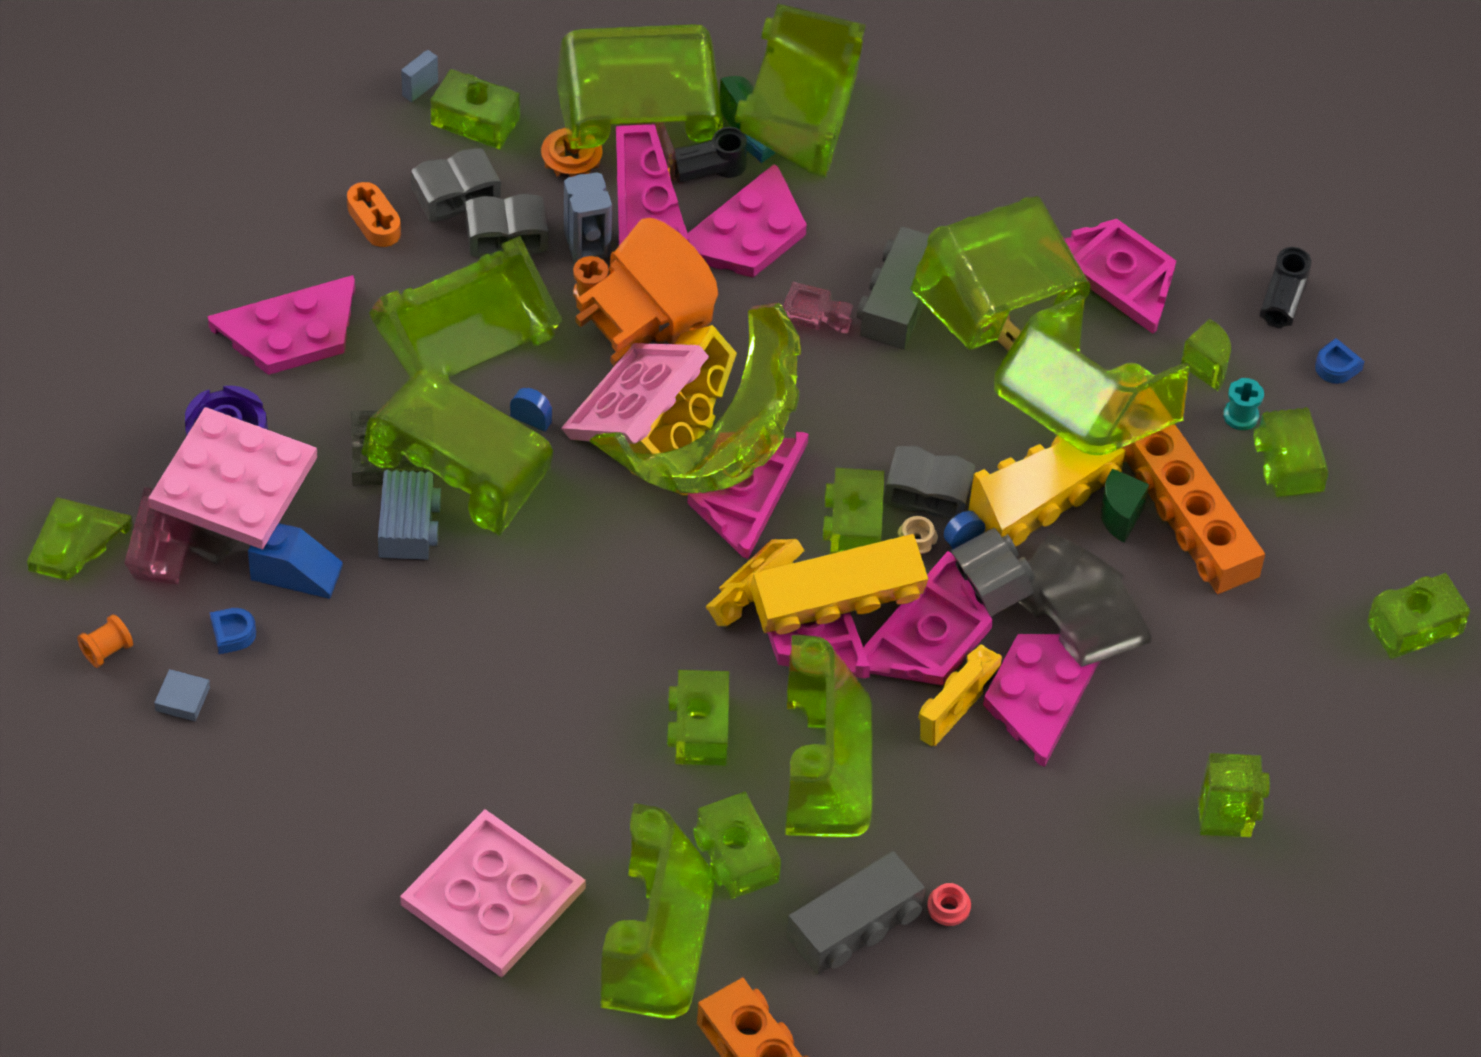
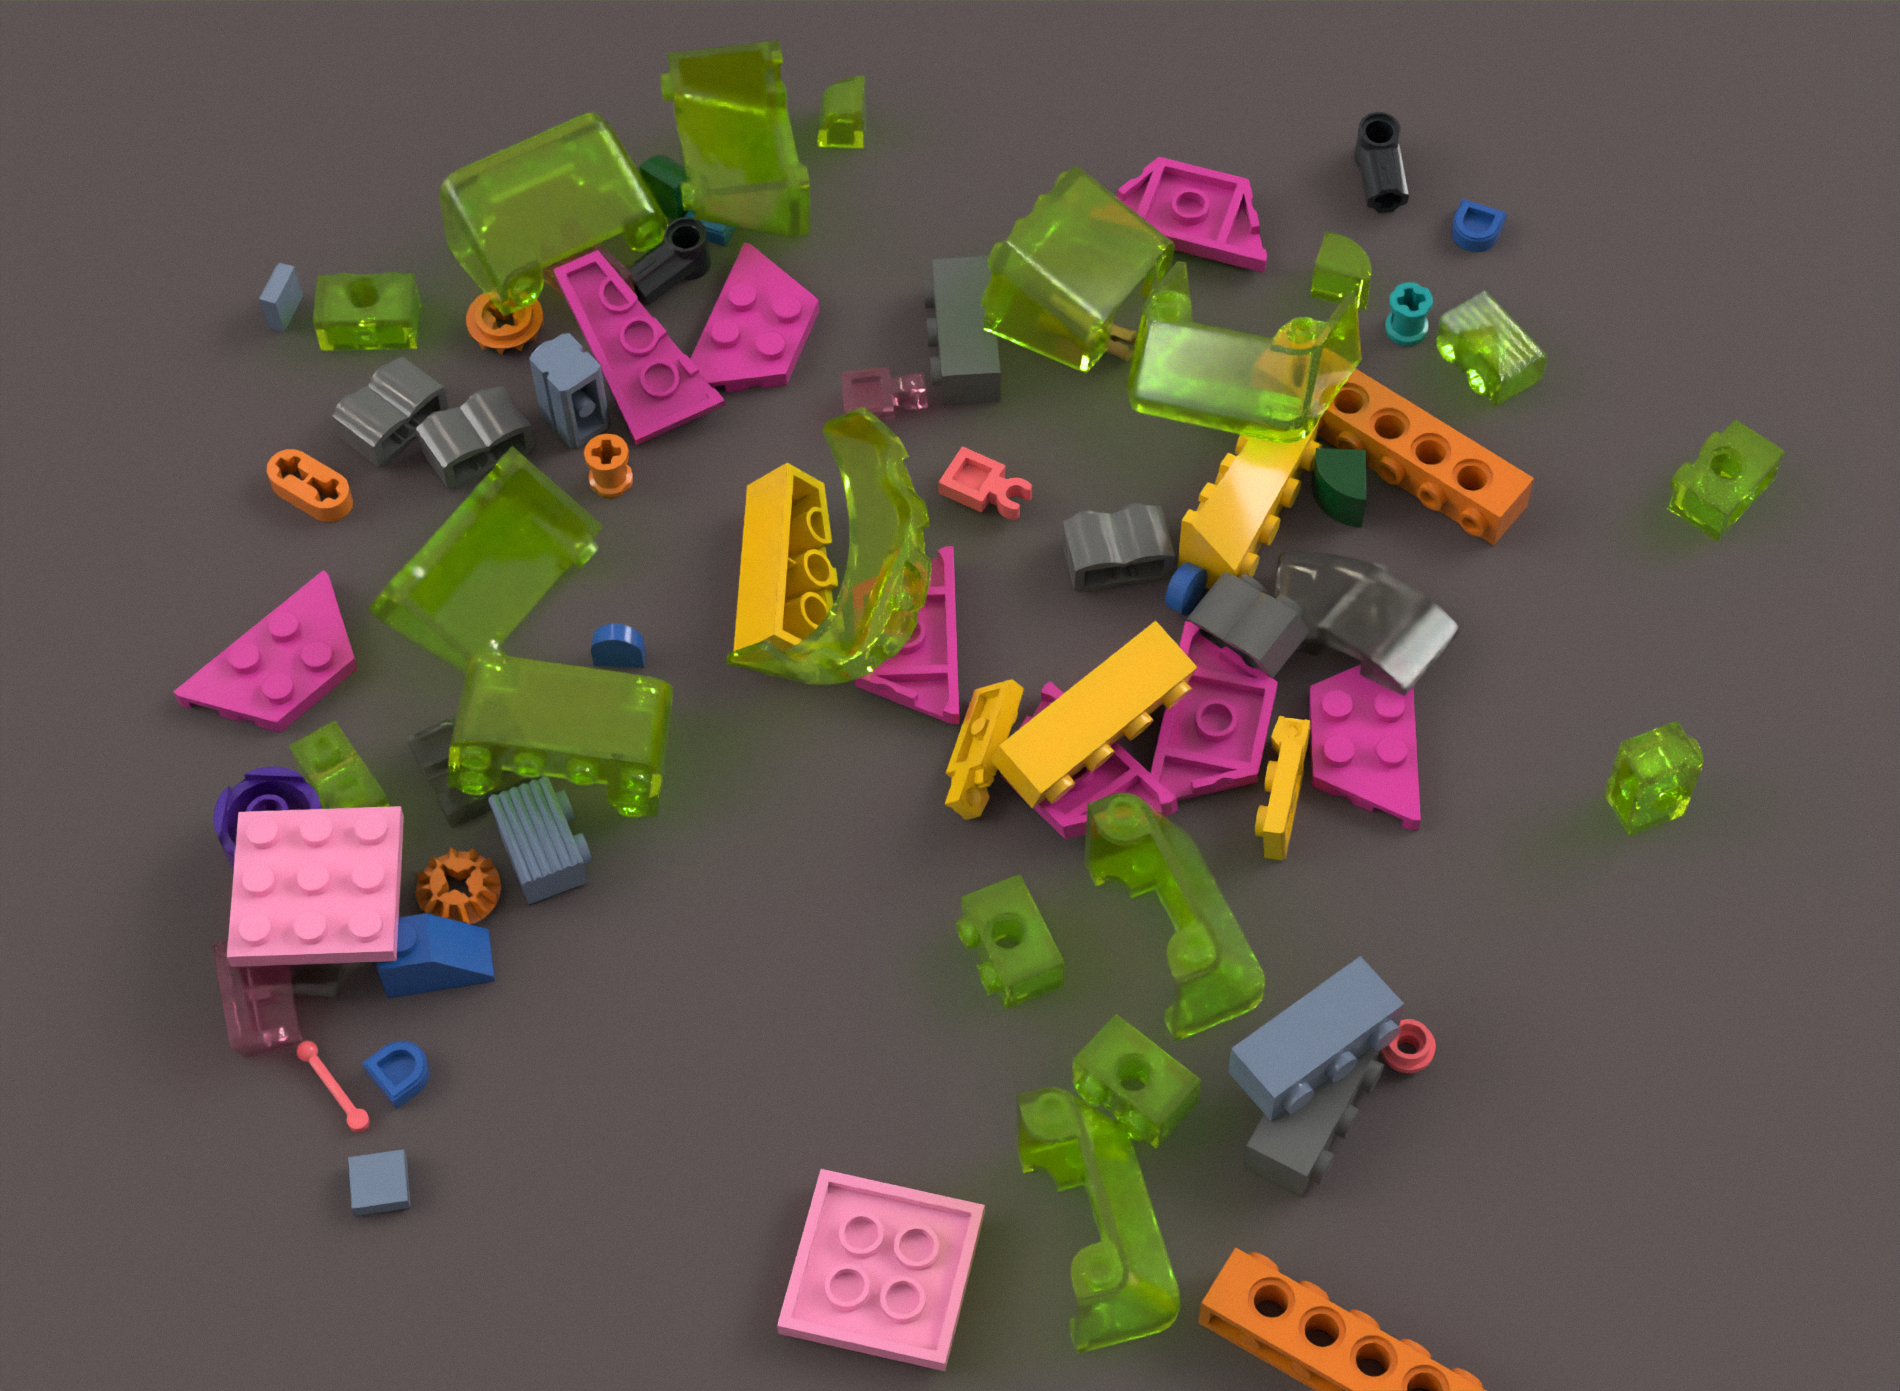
camera: 20 degrees left, 5 degrees up
(73, 537) = (144, 1037): clear neon green wing -> none
(105, 641) = (251, 1155): orange bush -> none
(188, 649) = (356, 1118): none -> coral hinge
(289, 409) = (336, 770): none -> clear neon green brick
(354, 525) = (482, 884): none -> orange gear
(636, 391) = (739, 580): bright pink plate -> none
(650, 283) = (686, 441): orange piece -> none
(855, 397) = (979, 481): none -> coral plate
(856, 508) = (1055, 619): clear neon green brick -> none
(874, 862) = (1316, 1039): none -> sand blue brick
(898, 100) = (843, 114): none -> clear neon green brick
(921, 528) = (1134, 604): tan plate -> none

